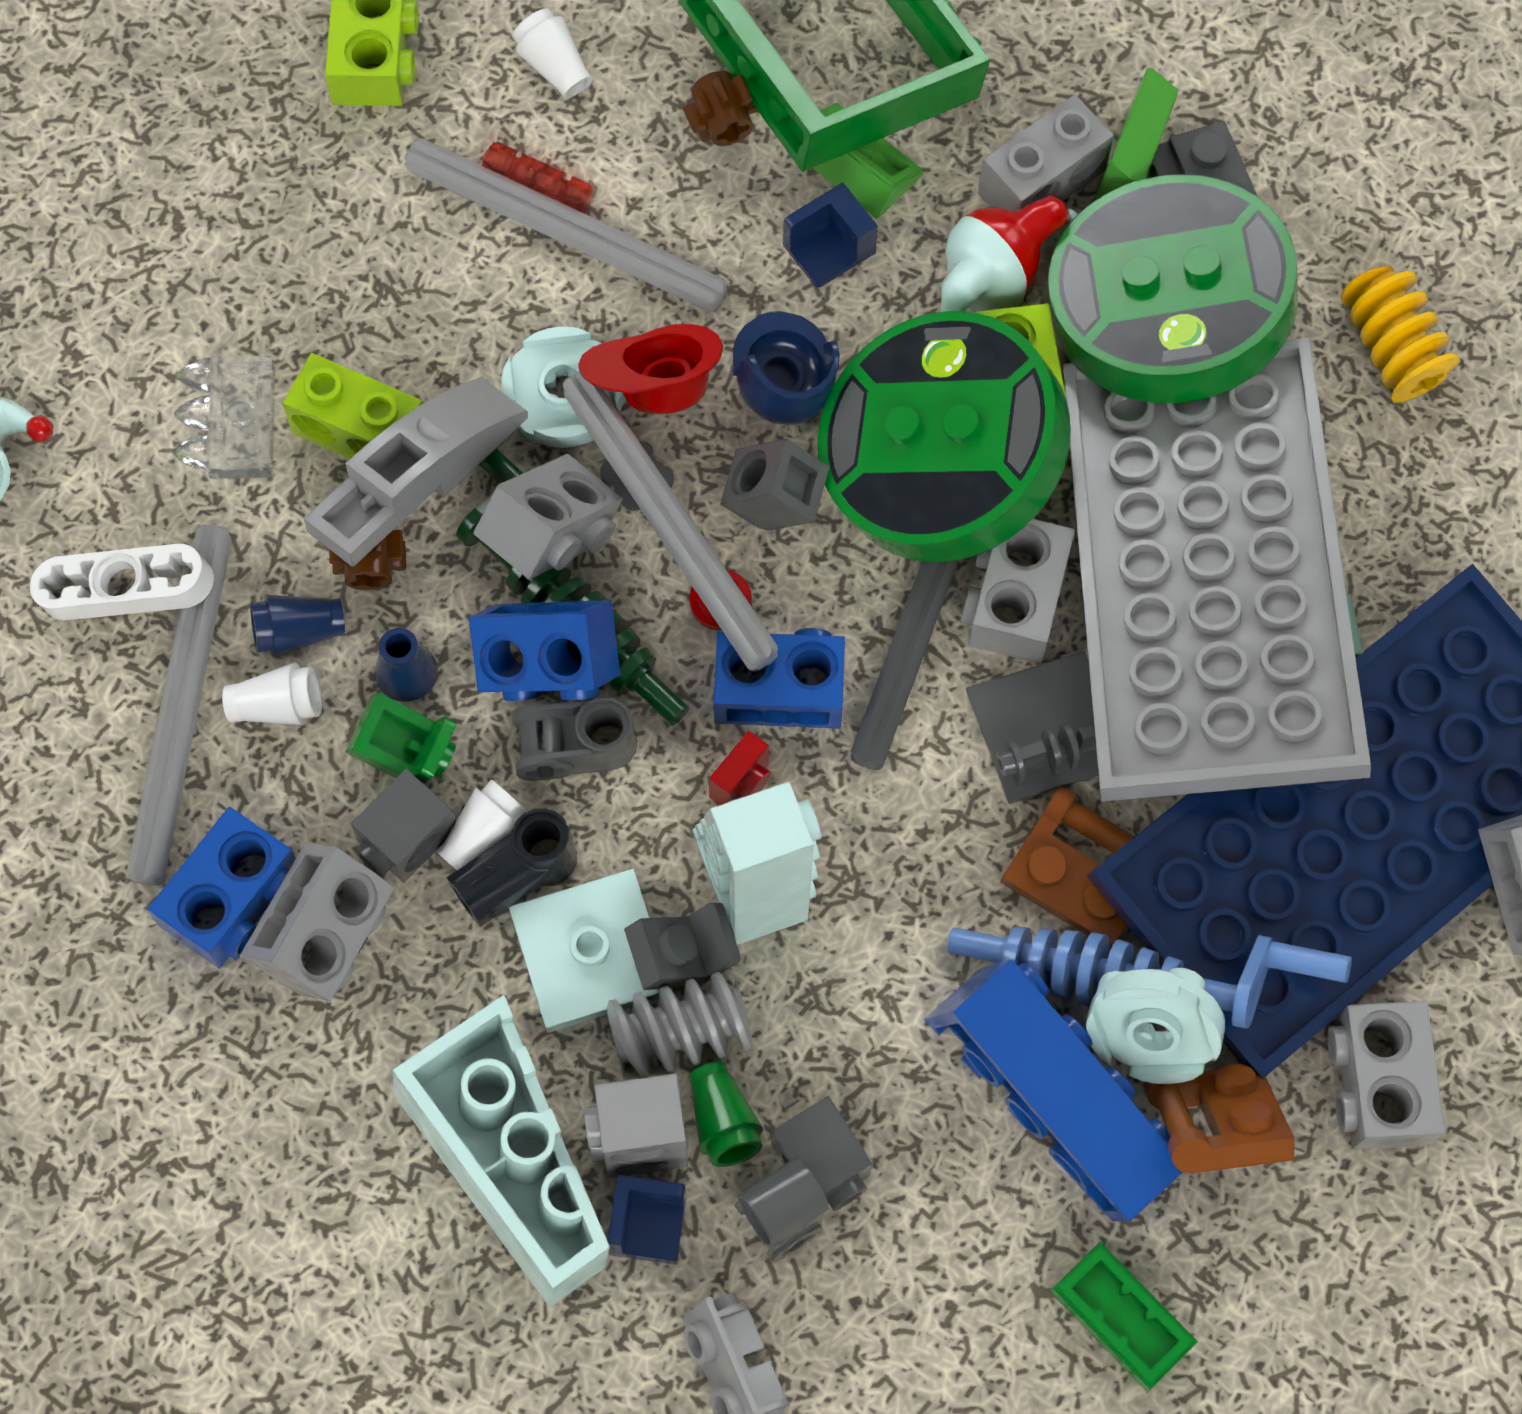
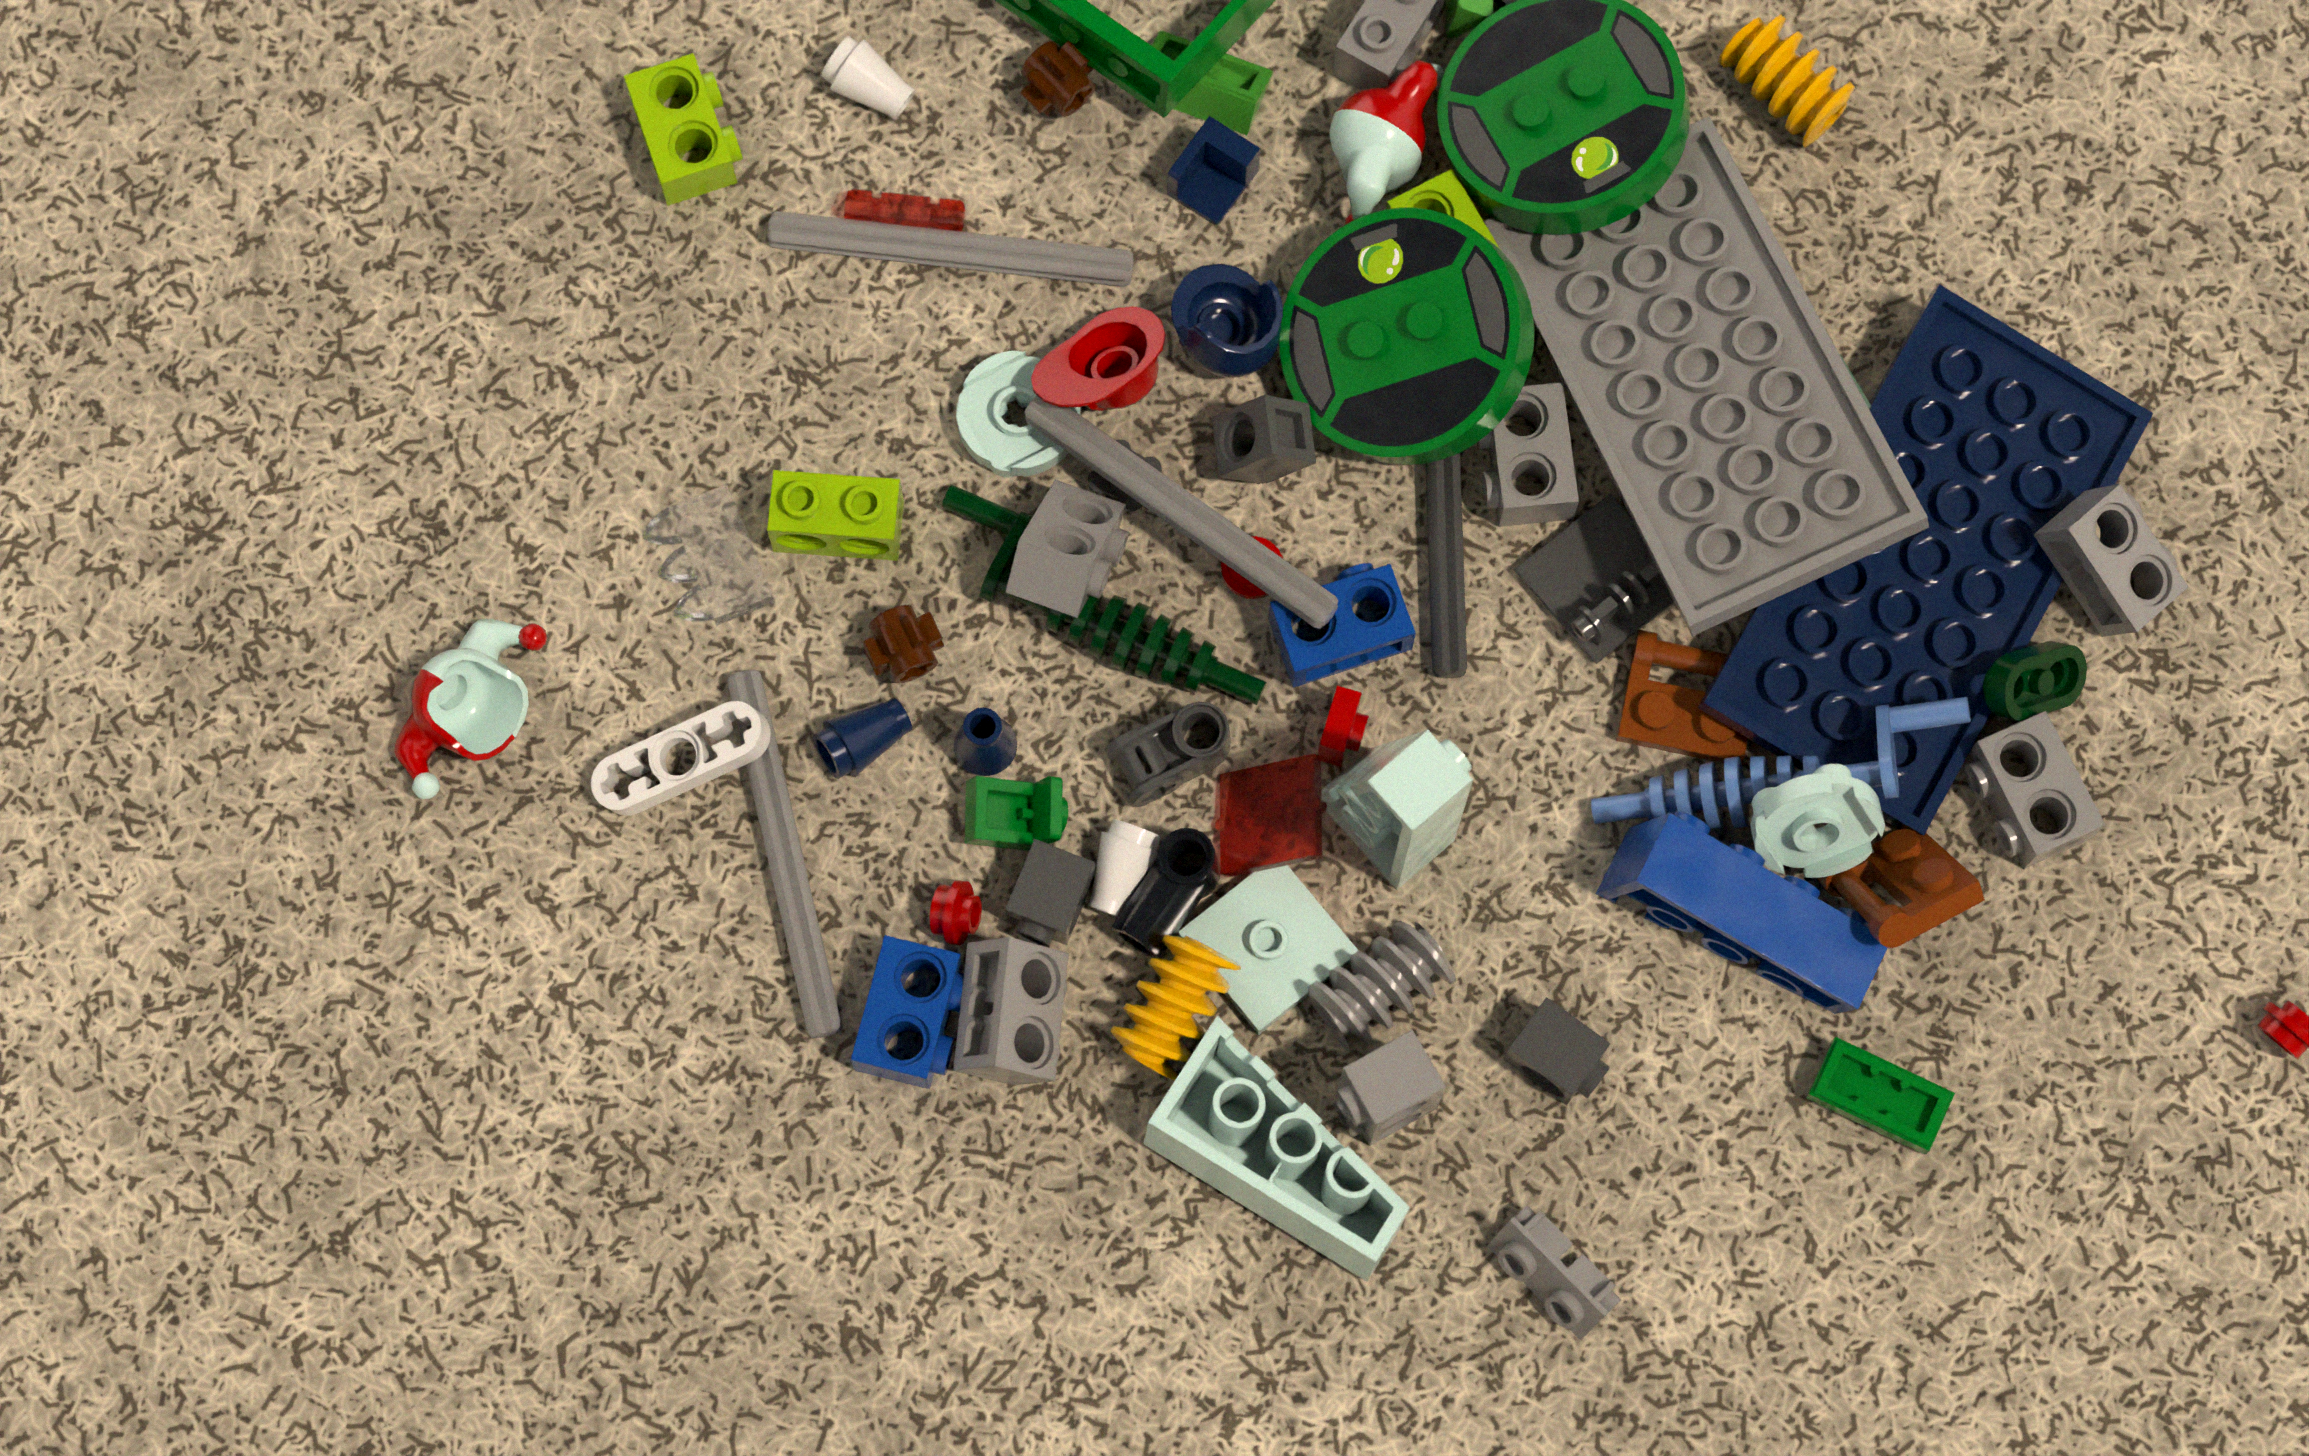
camera: 20 degrees left, 5 degrees up
(277, 697) = (874, 815): white cone -> none
(309, 812) = (955, 912): none -> red plate
(411, 460) = (920, 546): light grey slope -> none
(472, 969) = (1173, 1004): none -> yellow piece
(543, 637) = (1107, 663): blue brick -> none
(639, 830) = (1270, 815): none -> clear red piece
(647, 1219) = (1424, 1169): dark blue panel -> none
(682, 947) = (1357, 909): dark grey bracket -> none
(723, 1117) = (1457, 1052): green cone -> none
(785, 1208) = (1548, 1111): dark grey piece -> none
(1428, 969) = (2035, 680): none -> dark green plate

